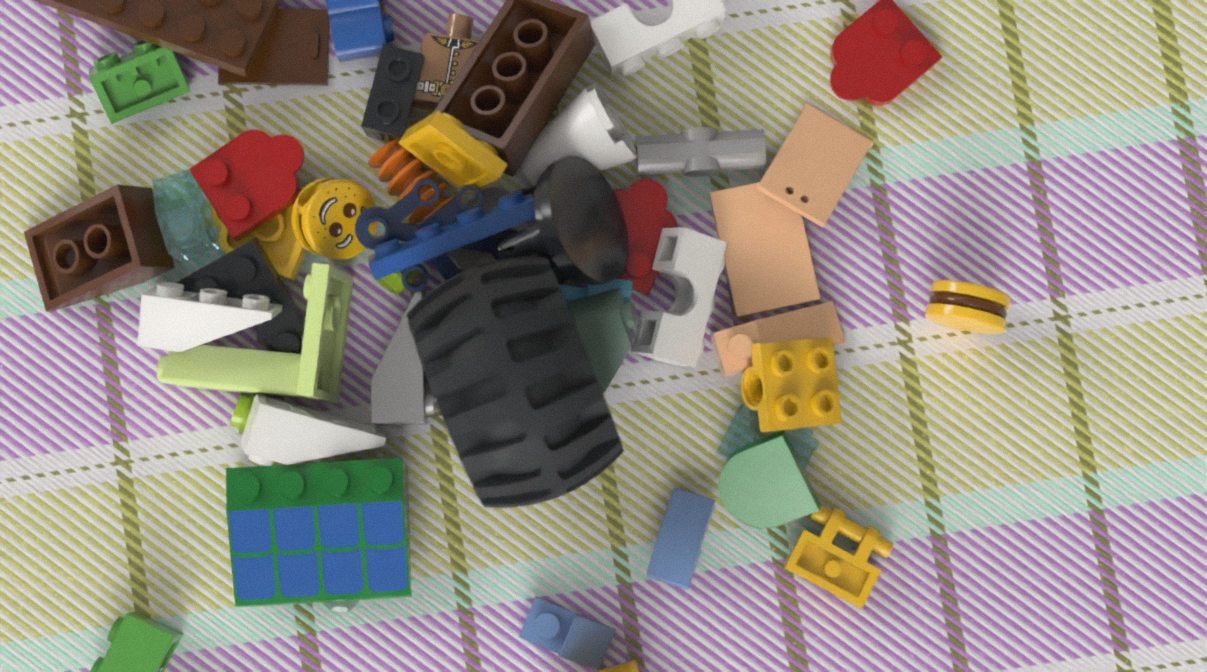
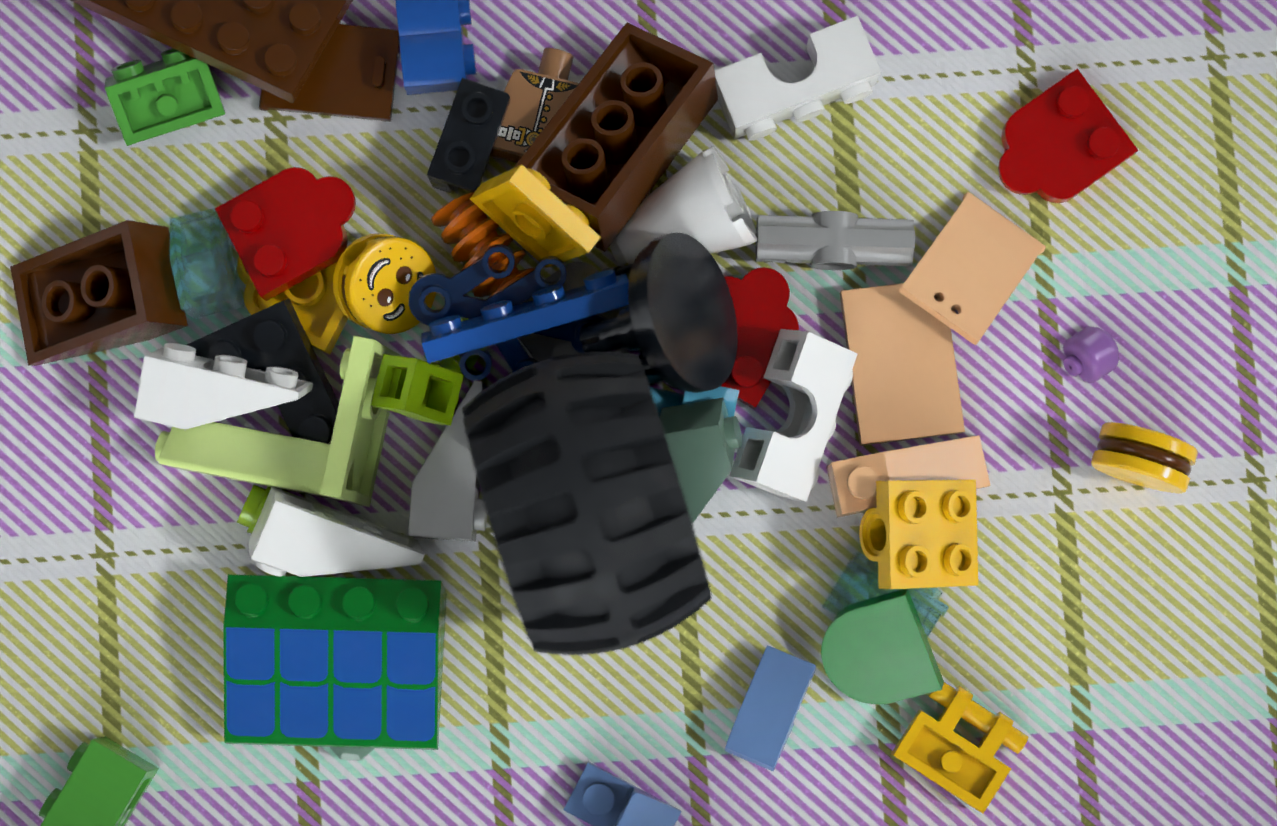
camera: 10 degrees right, 0 degrees up
(368, 302) = (417, 389): none -> lime brick
(918, 227) = (1090, 354): none -> medium lavender piece

